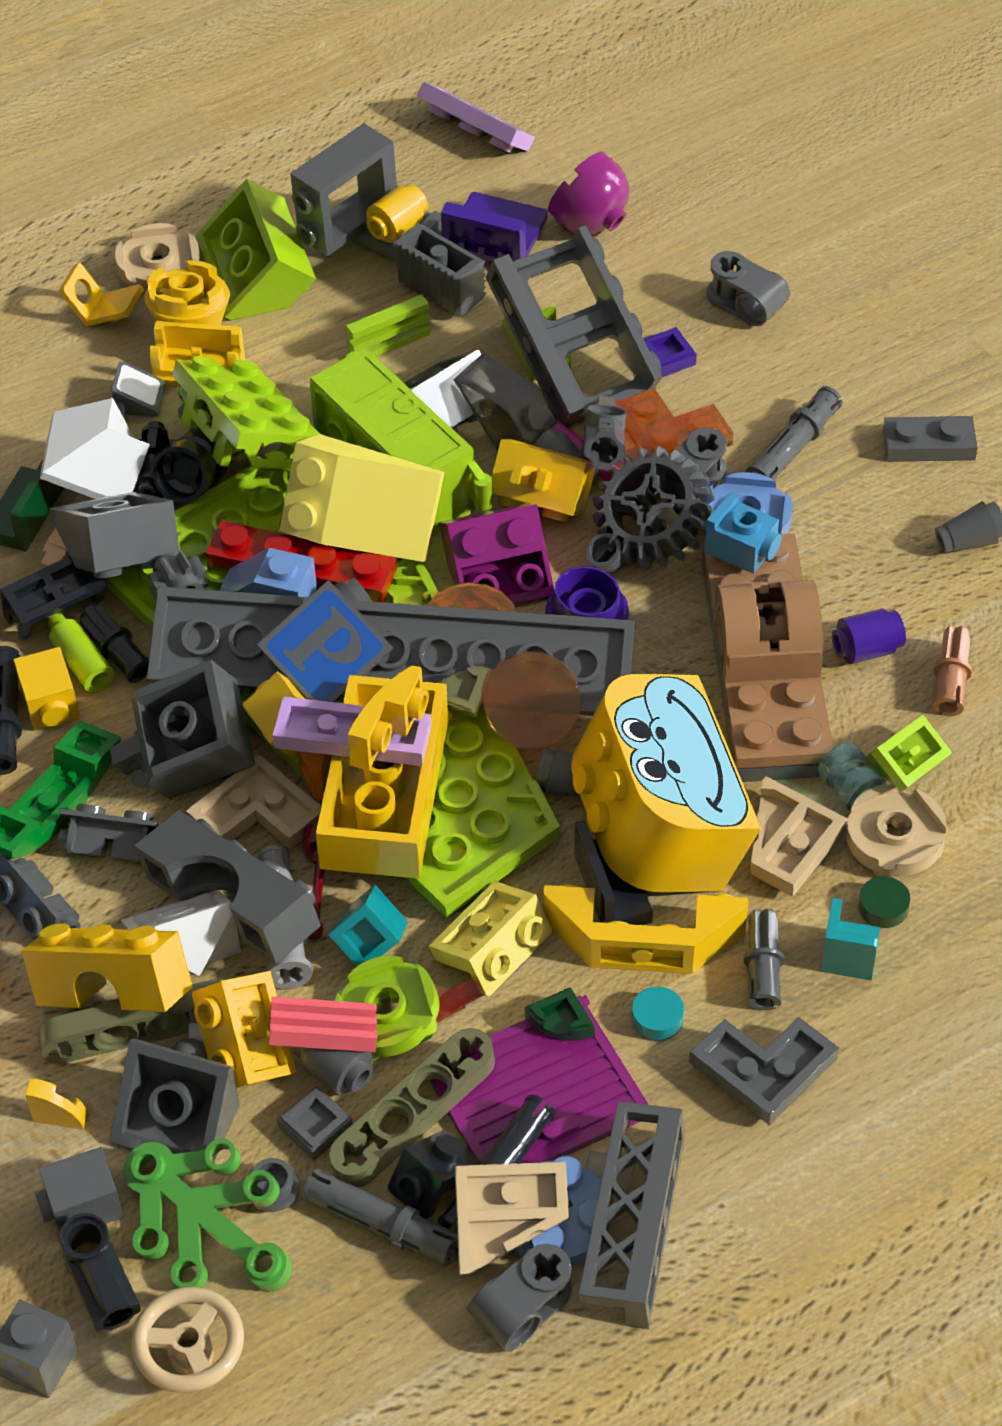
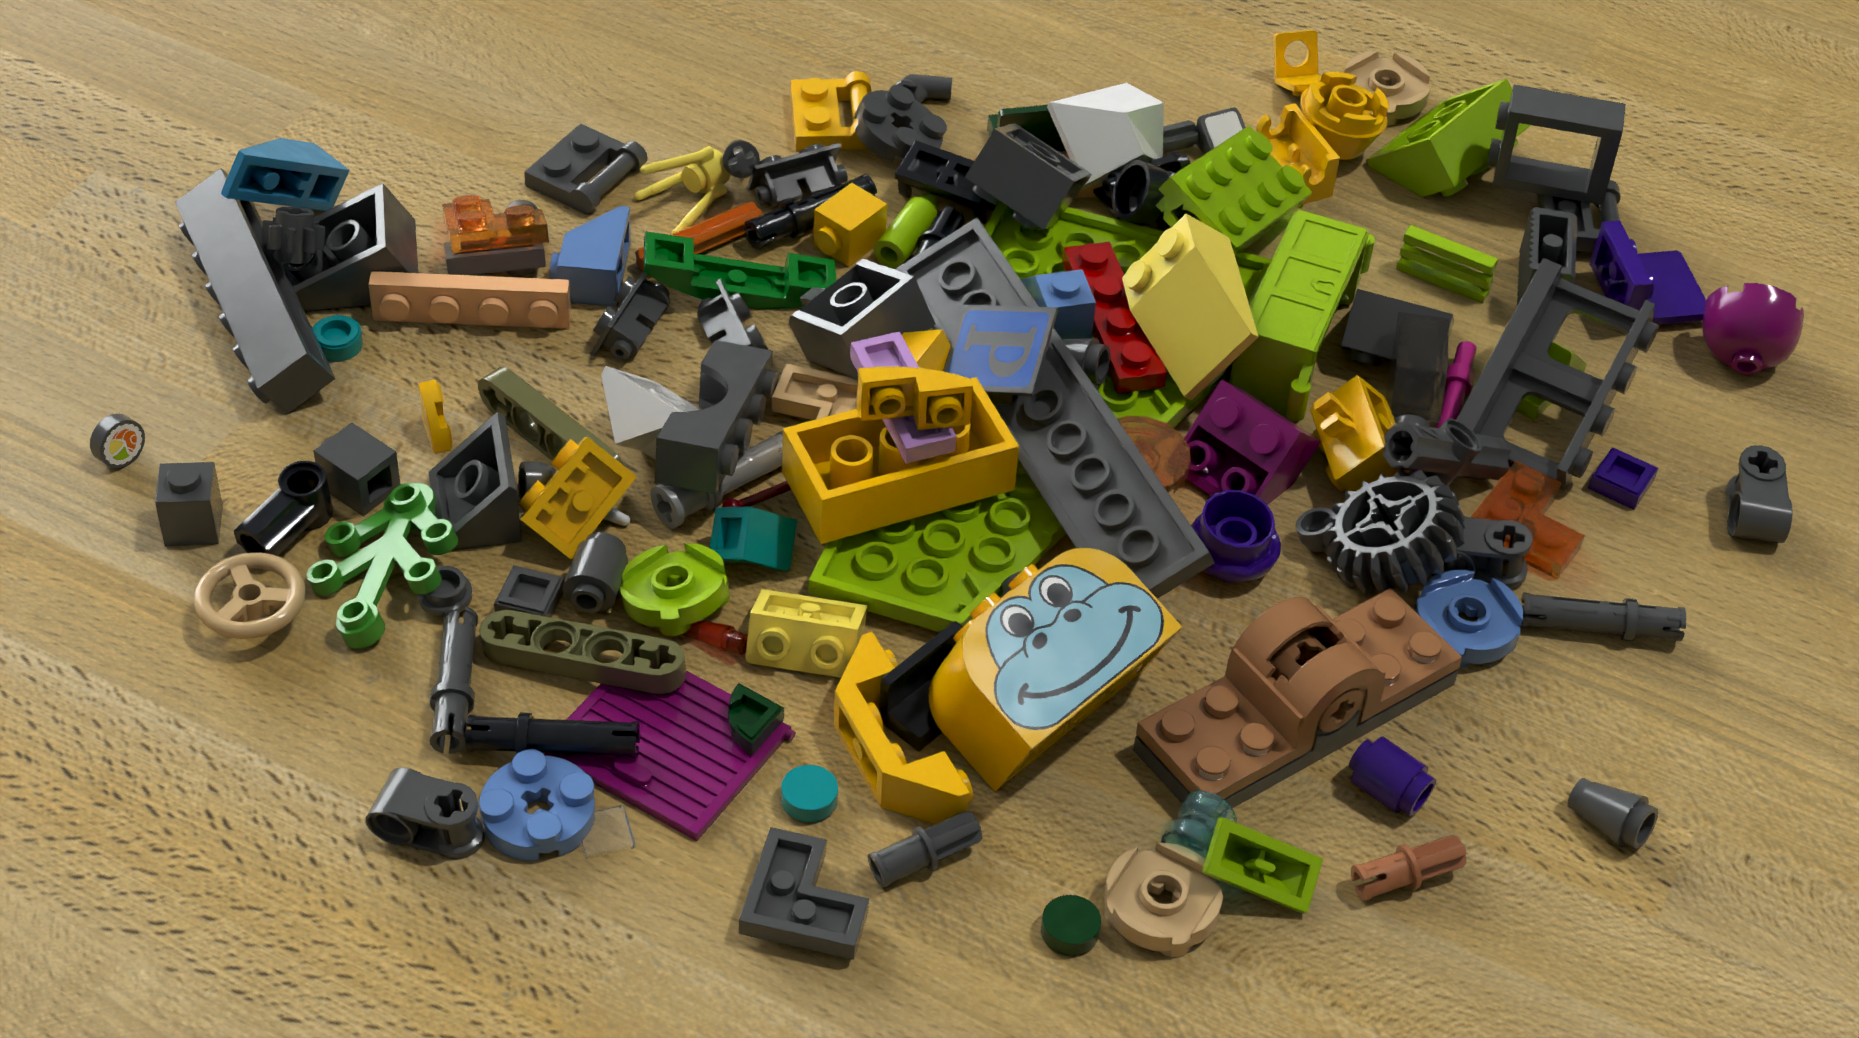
camera: 55 degrees right, 5 degrees down
(140, 963) = (572, 372): yellow arch -> none
(177, 572) = (1016, 237): dark grey gear -> none
(323, 1024) = (614, 535): coral tile -> none
(396, 213) = (1580, 195): yellow brick -> none
(429, 1171) = (524, 687): black bracket -> none
(467, 689) = (1042, 476): olive tile -> none
(474, 119) = (1774, 213): lavender plate -> none
(505, 1208) = (495, 748): tan wing -> none
(532, 700) = (1068, 518): clear orange tile -> none
(652, 1219) = (570, 867): dark grey fence -> none
(741, 534) = (1402, 599): dark azure brick -> none
(792, 836) = (1086, 812): tan wing -> none
(849, 946) = (990, 906): teal panel -> none
(929, 438) = (1711, 733): dark grey plate -> none

